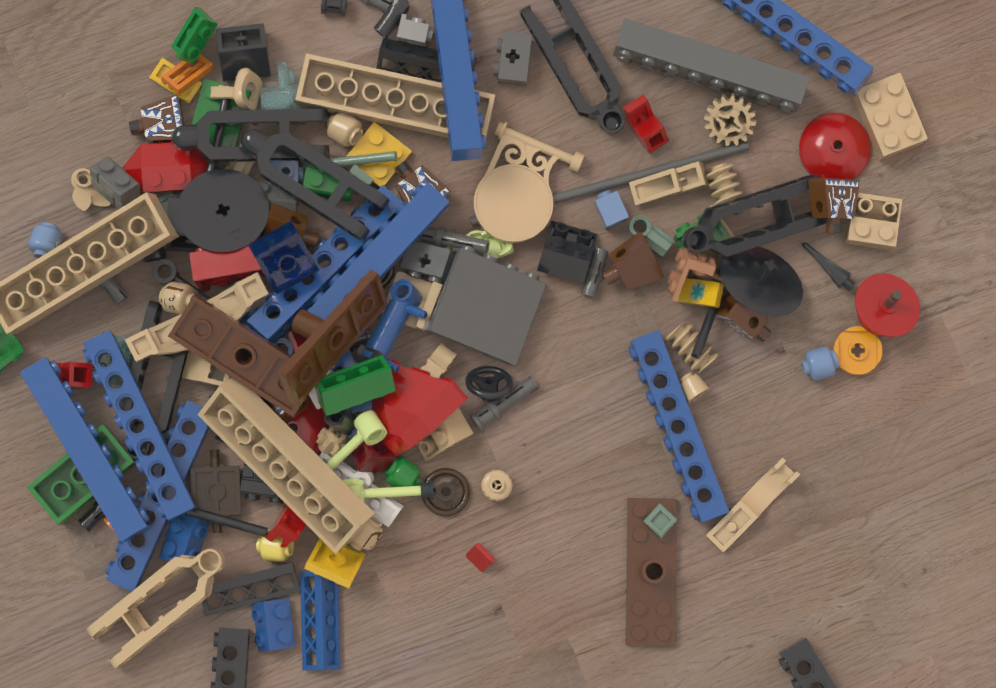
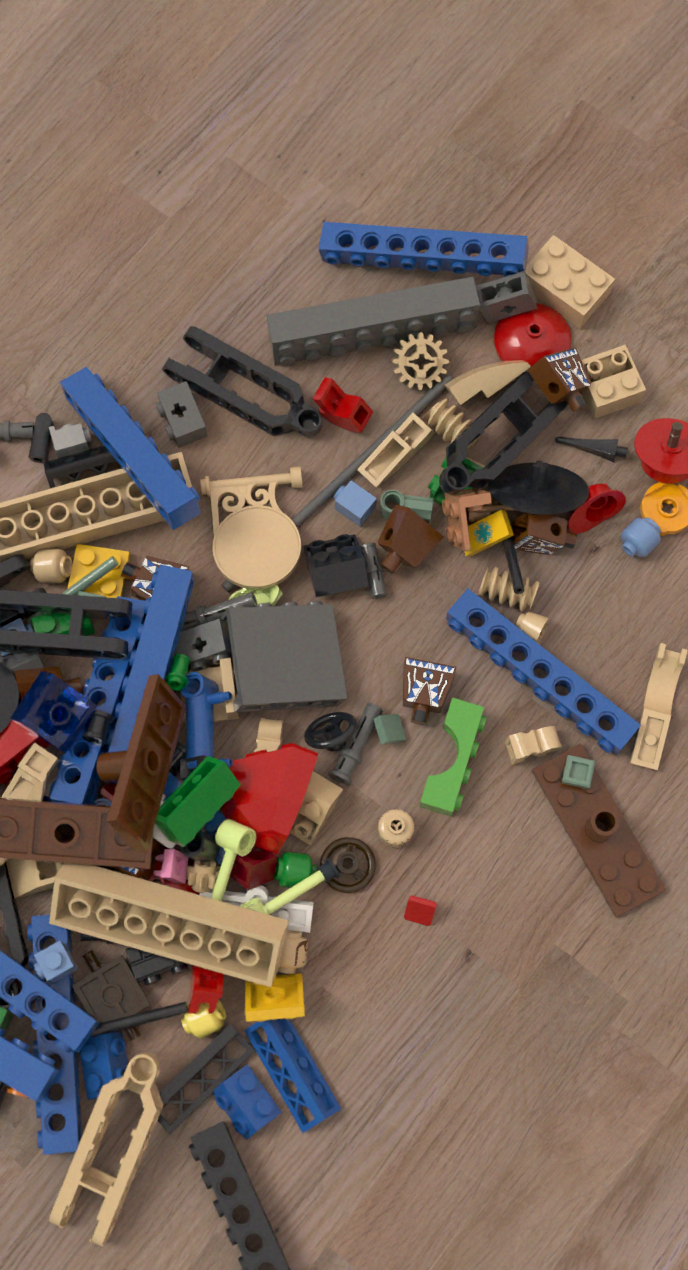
camera: 20 degrees left, 10 degrees down
(186, 446) = (55, 962): none -> medium blue brick
(311, 287) = (98, 727): none -> black bush
(312, 423) = (173, 867): none -> bright pink tile
(395, 275) = (177, 677): none -> green pin
(536, 406) = (389, 729): none -> sand green tile
(581, 389) = (425, 687): none -> torso
(594, 433) = (442, 790): none -> bright green arch
(640, 479) = (535, 742): none -> tan leg
(774, 164) = (486, 379): none -> tan slope
(804, 319) = (598, 507): none -> red piece
(830, 105) = (506, 297): none -> dark grey brick

